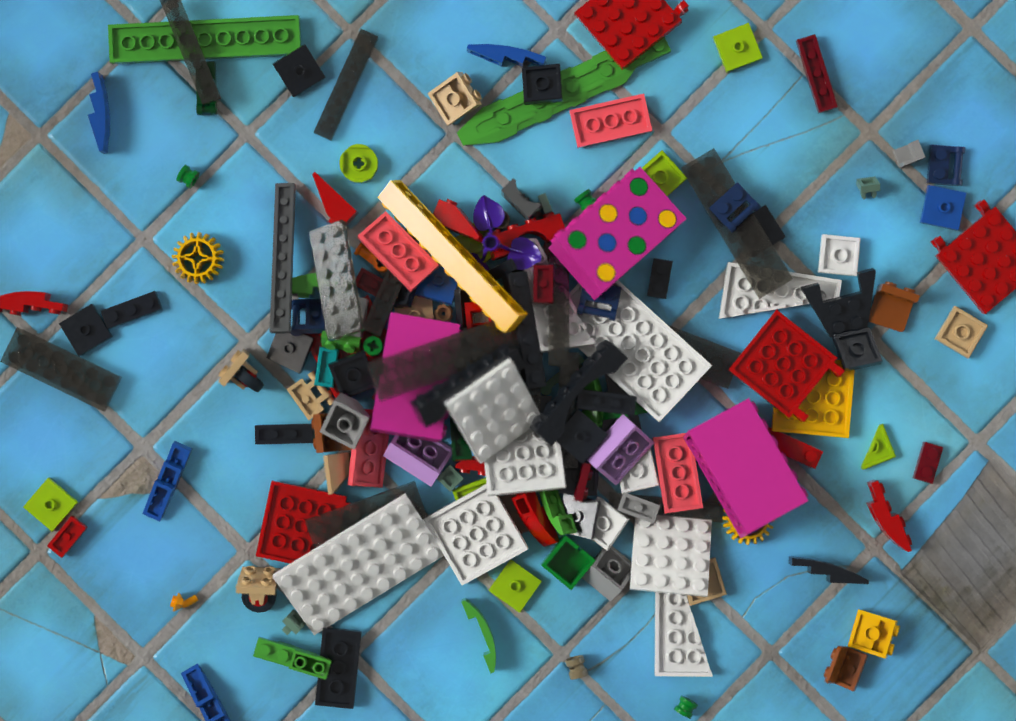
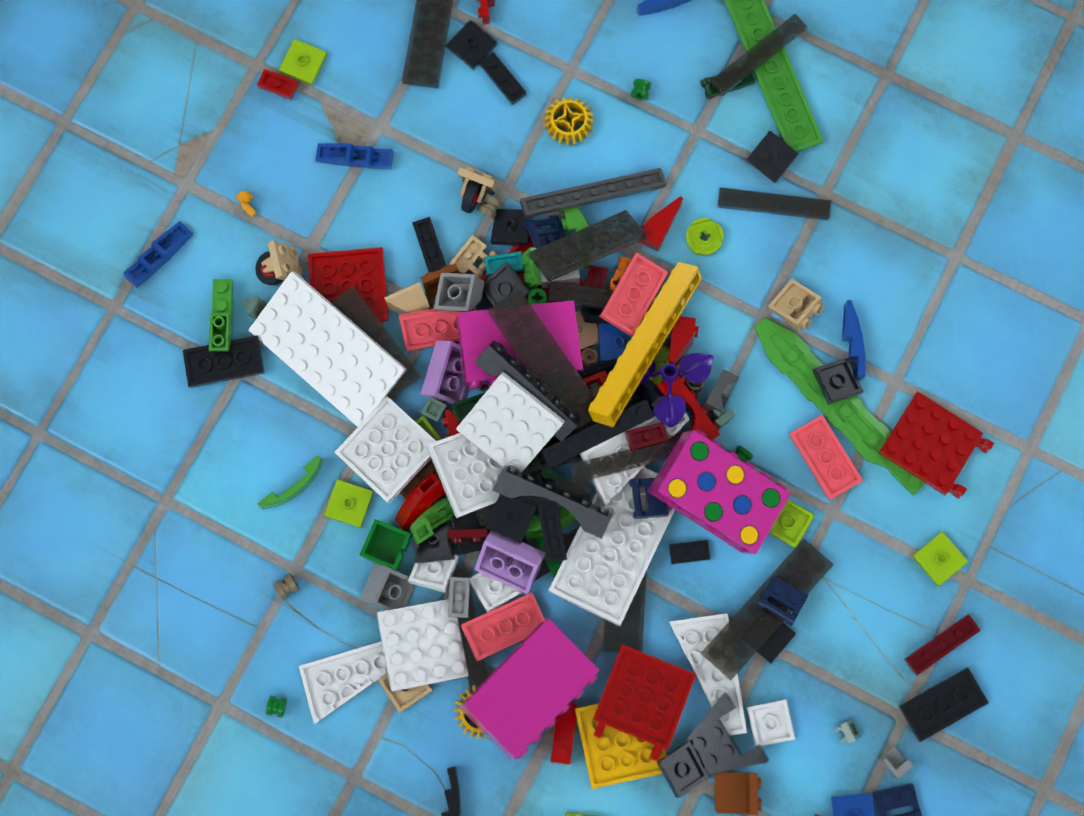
camera: 75 degrees right, 10 degrees down
(263, 363) = (490, 206): none -> dark tan wheel
(870, 92) = (943, 704): none -> black plate

